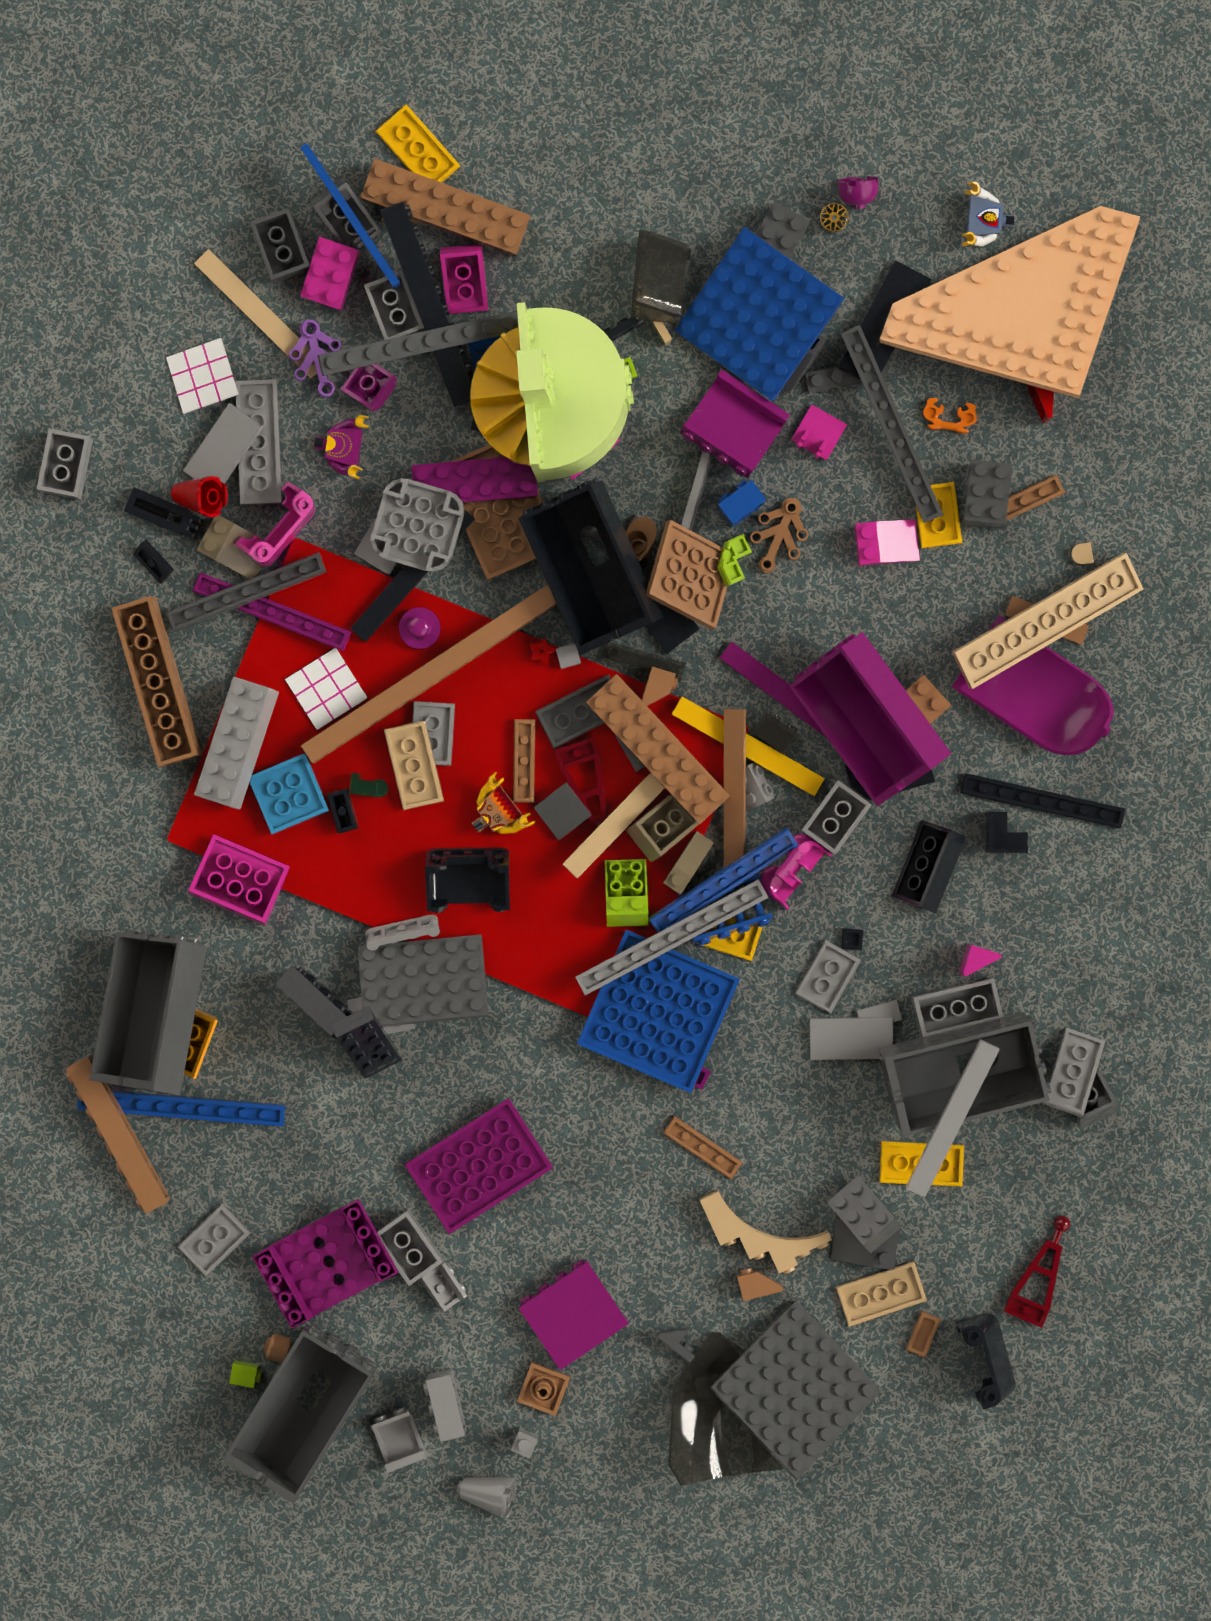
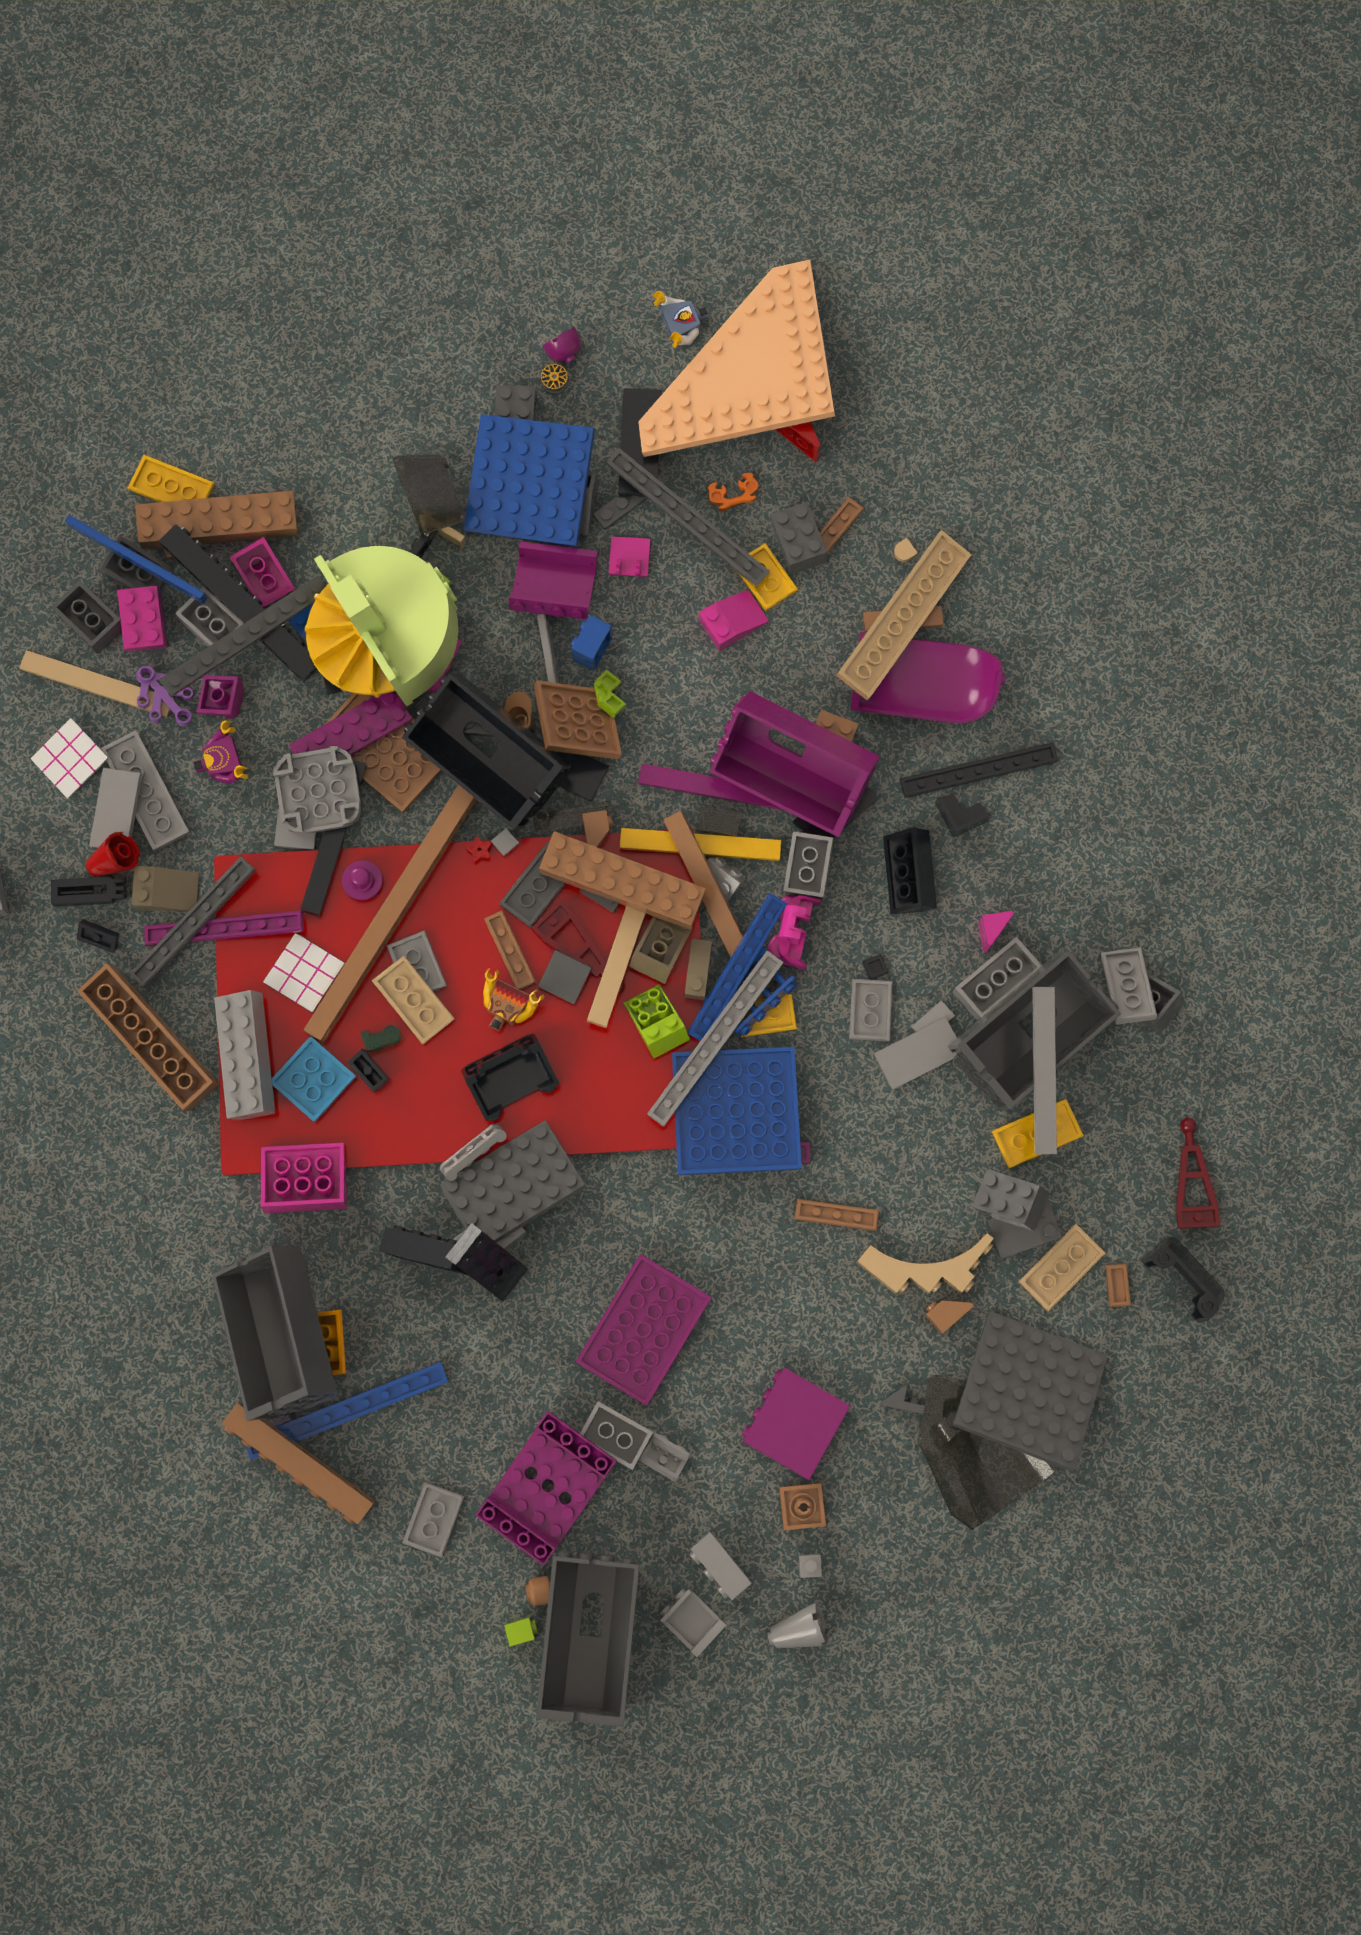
camera: 20 degrees left, 10 degrees down
(300, 512) = (193, 876): dark pink windscreen -> none
(781, 532) = (638, 652): medium nougat plant -> none

